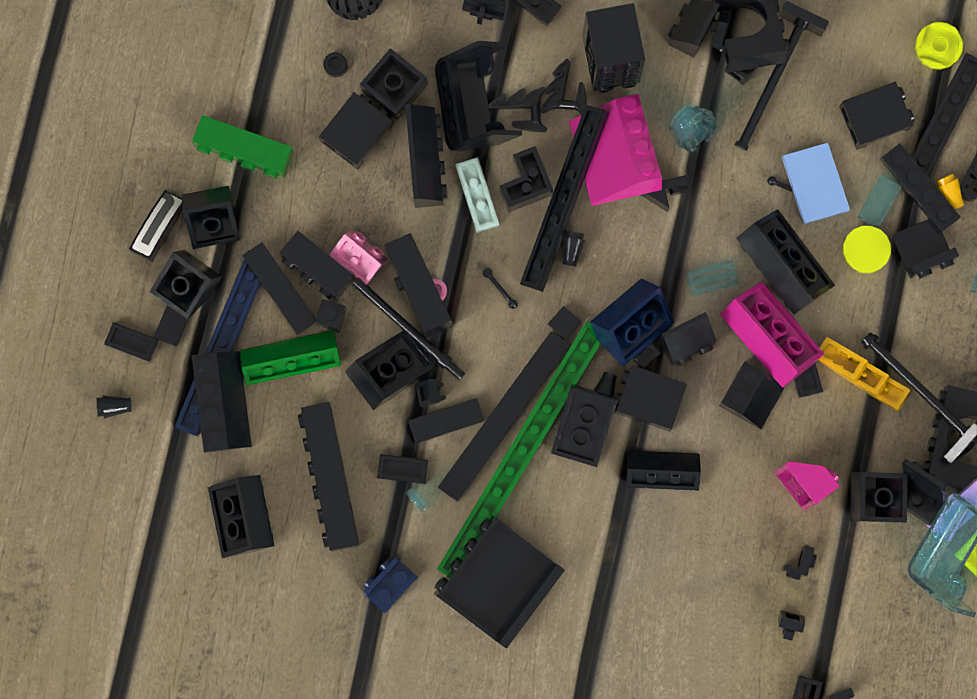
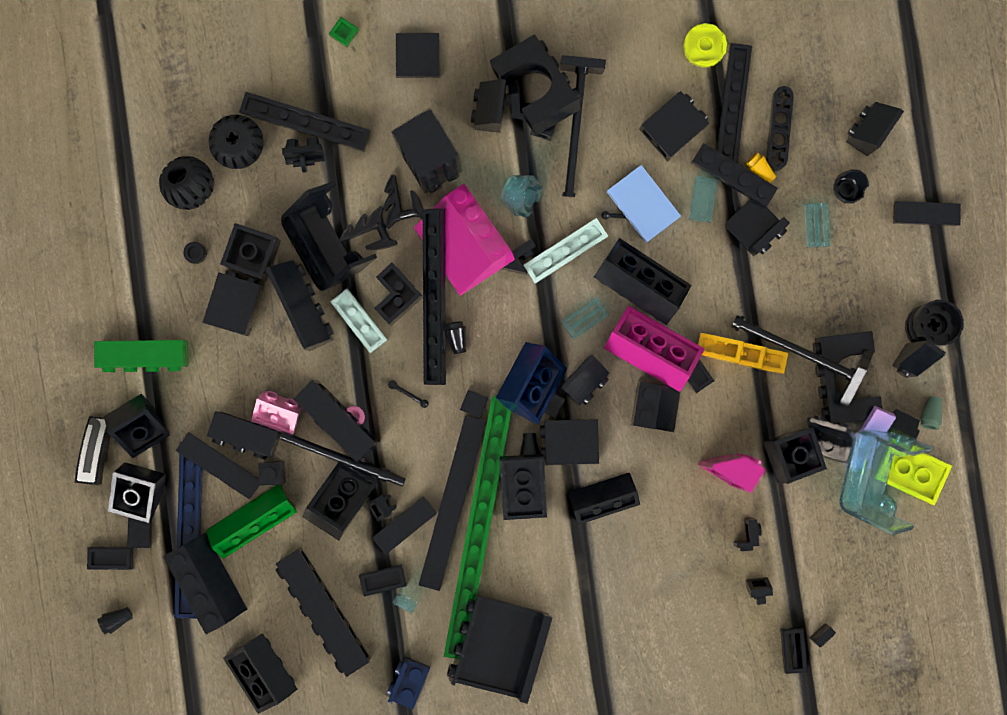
camera: 25 degrees left, 5 degrees up
(717, 201) = (565, 251): none -> light aqua plate
(866, 249) = (707, 244): neon yellow tile -> none

